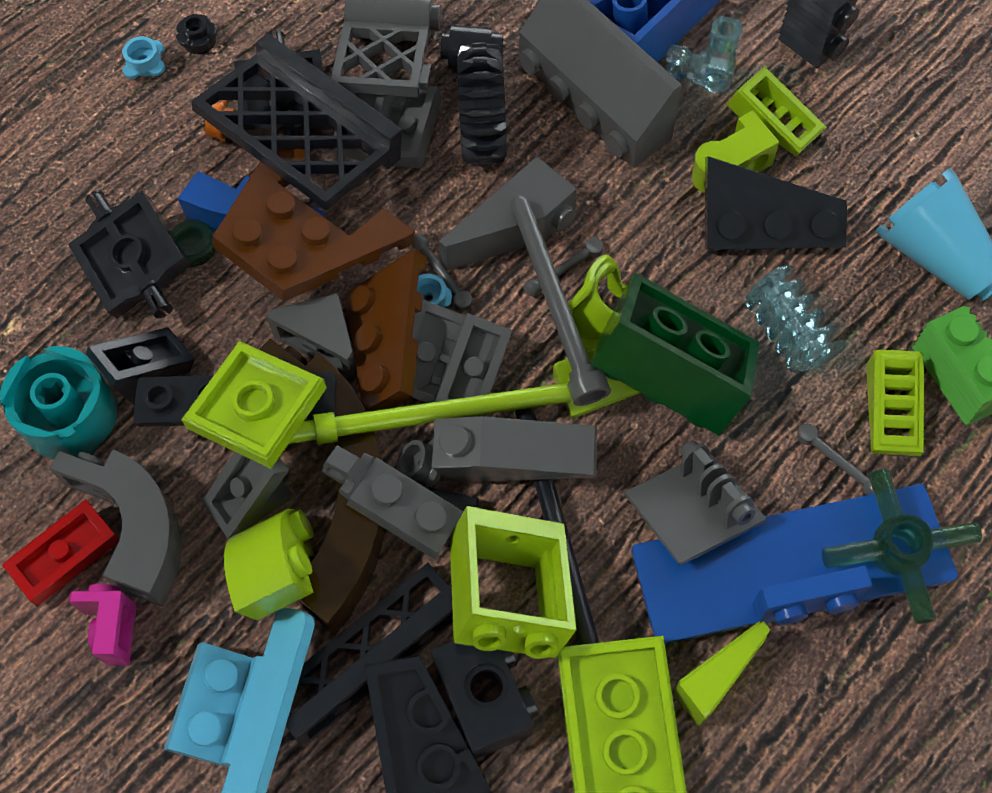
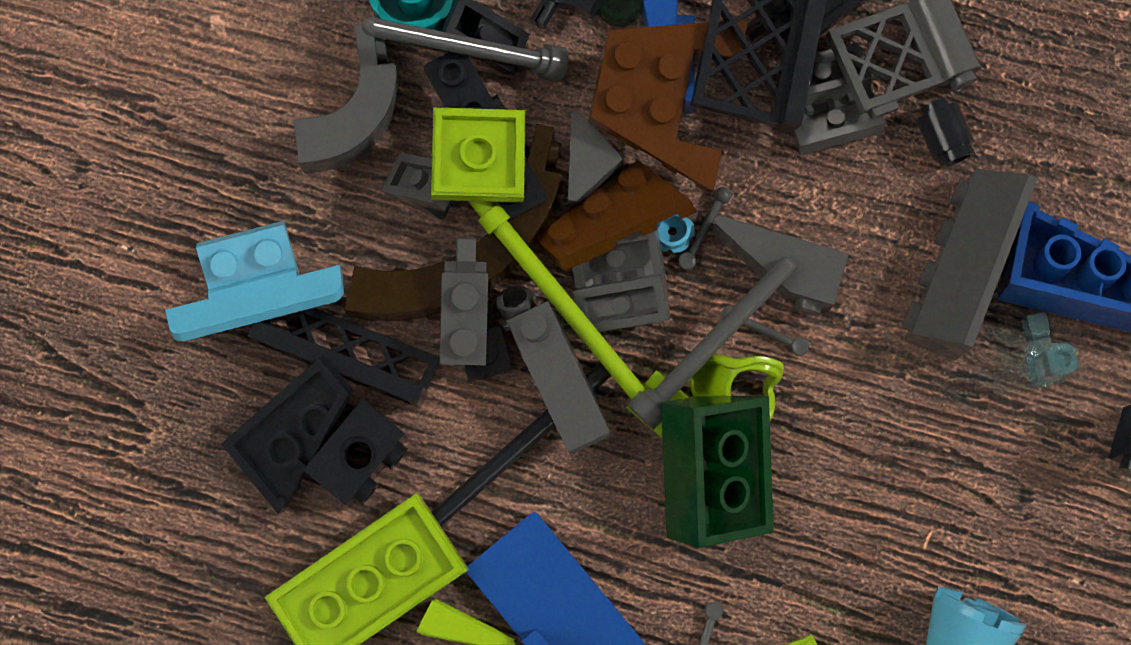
camera: 60 degrees right, 15 degrees up
(60, 553) = (302, 73): red plate -> none
(112, 630) = (266, 149): dark pink bracket -> none
(203, 323) = (547, 62): none -> dark grey piece
(269, 564) = (366, 238): lime brick -> none
(482, 103) = (877, 176): black gear -> none
(536, 545) = (483, 413): lime window -> none
(695, 505) = (593, 545): dark grey hinge -> none
(749, 147) = (944, 422): lime leg -> none
(767, 212) = (907, 484): black wing -> none
(779, 96) = (1051, 433): lime slope -> none
(789, 322) = (806, 551): clear light blue piece -> none

